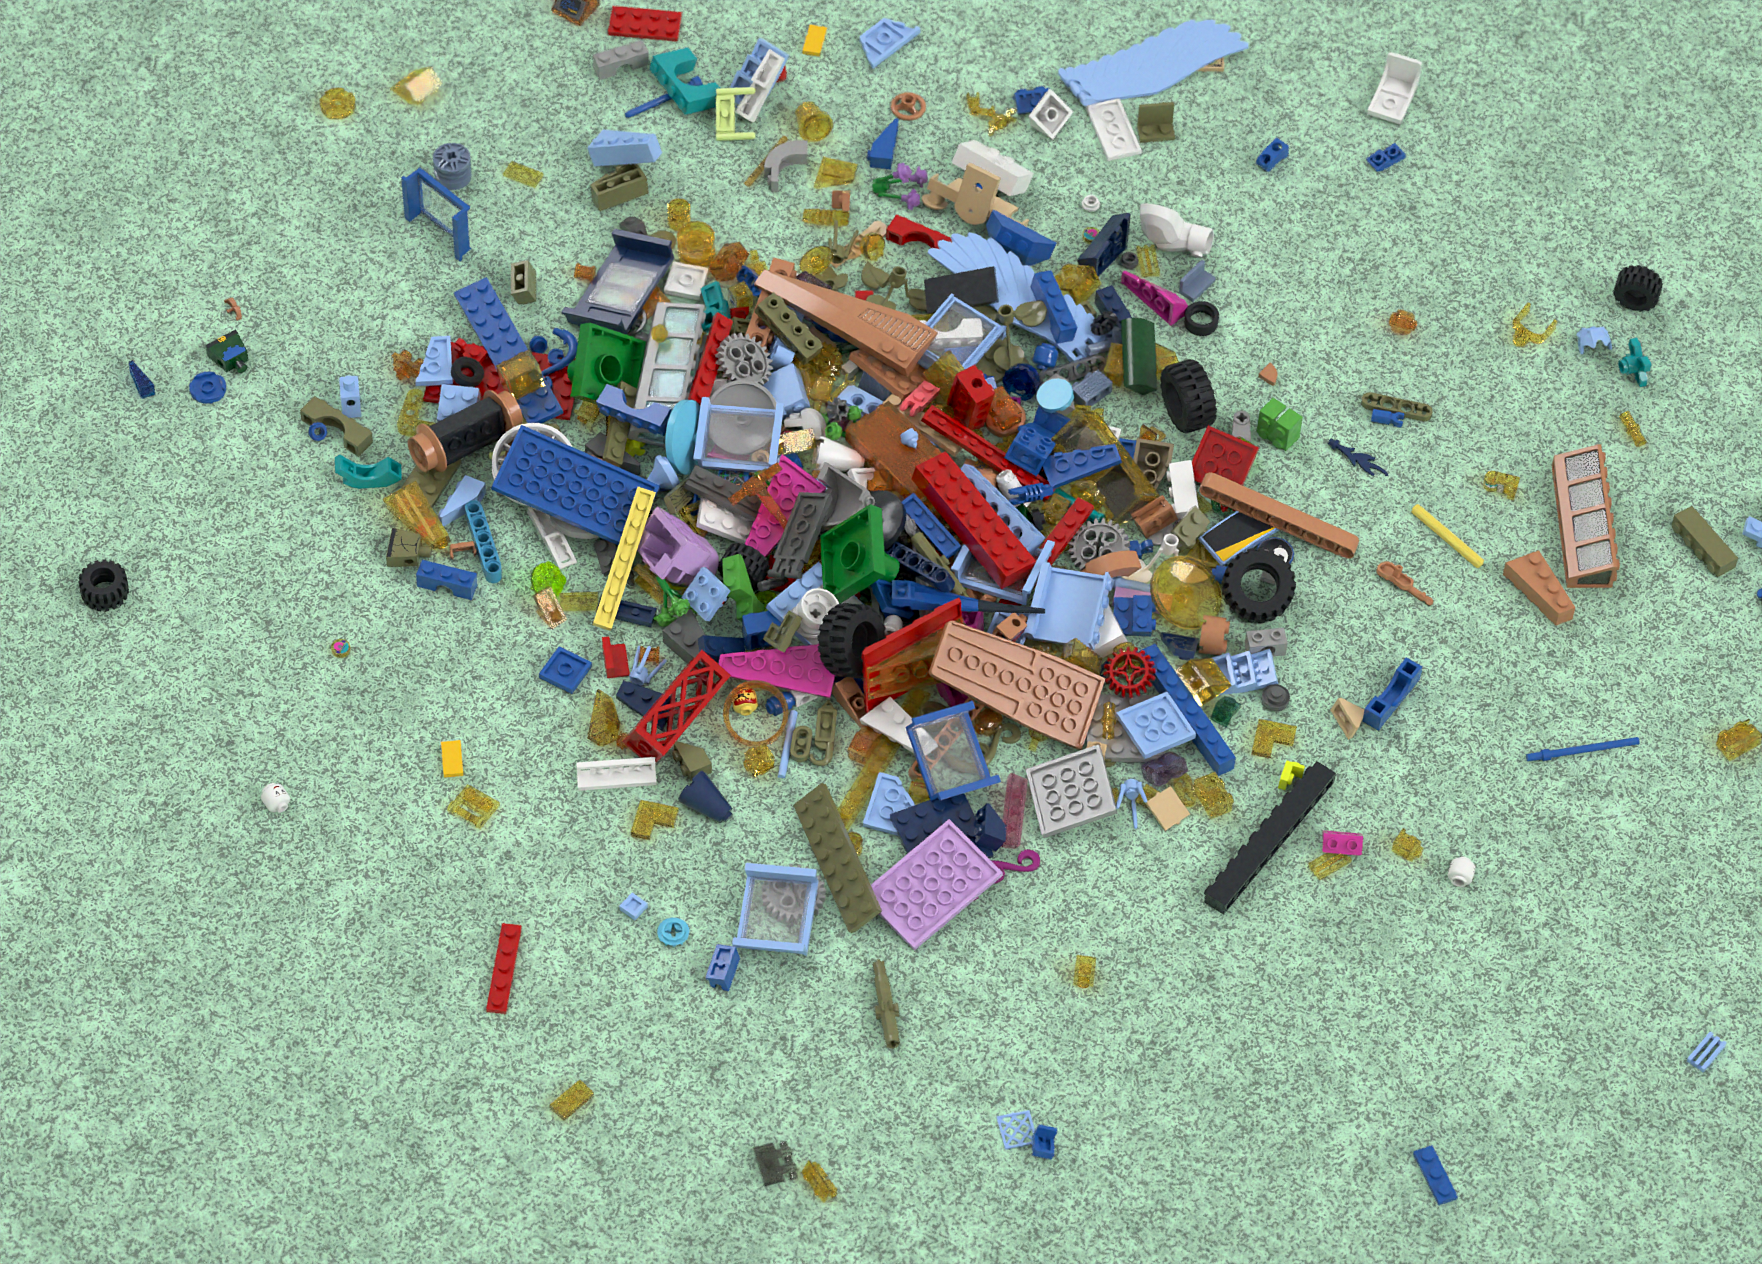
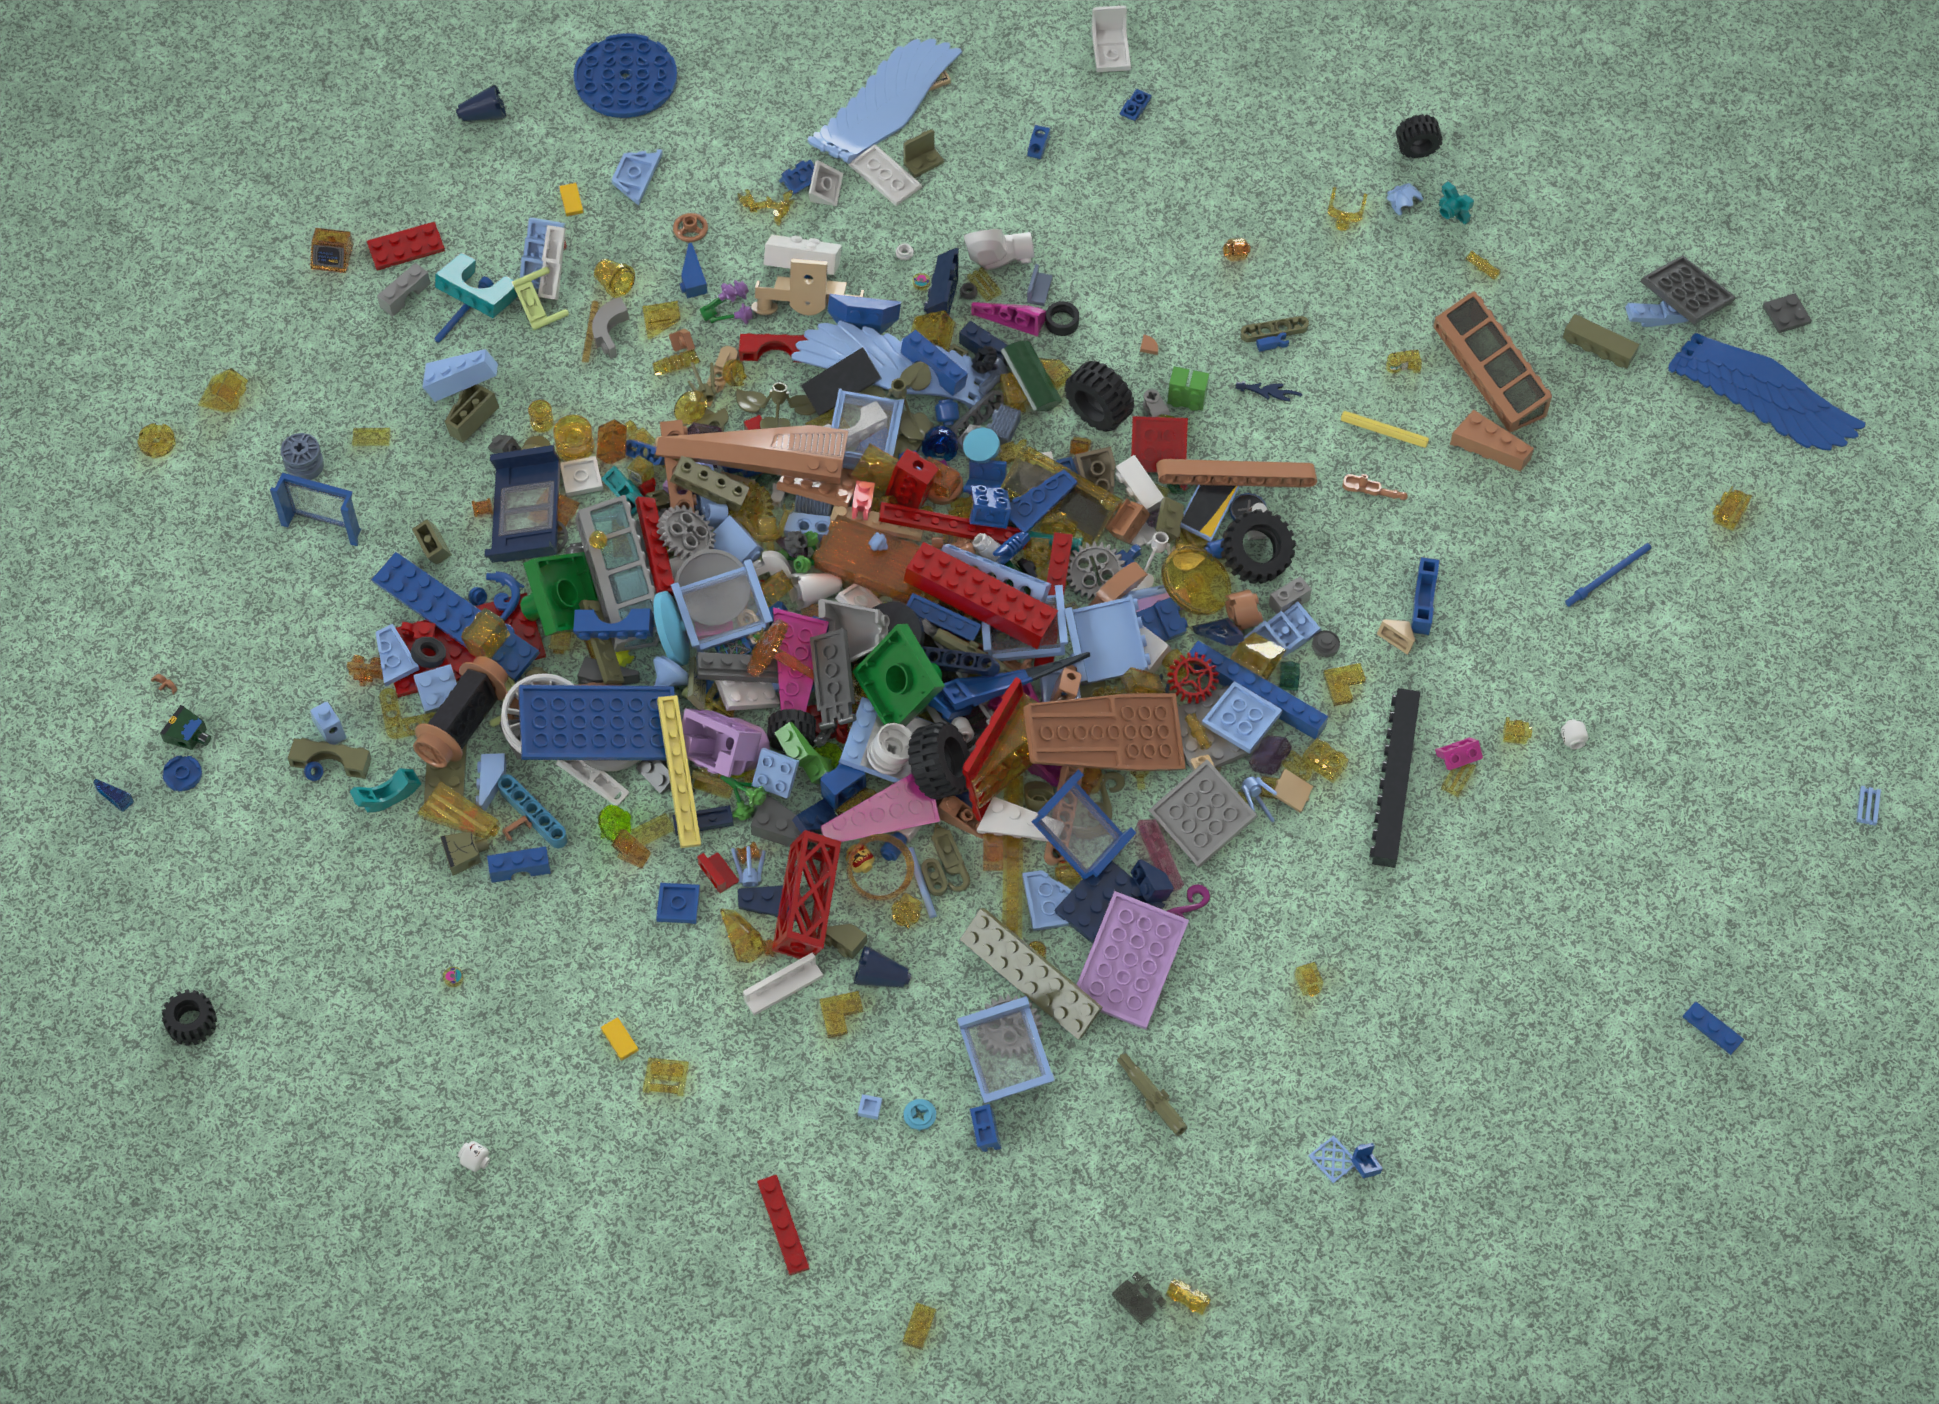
camera: 25 degrees left, 5 degrees up
(782, 635) = (872, 783): olive plate -> none
(881, 481) = (872, 594): clear orange hair -> none
(1290, 770) = (1377, 710): neon yellow bracket -> none

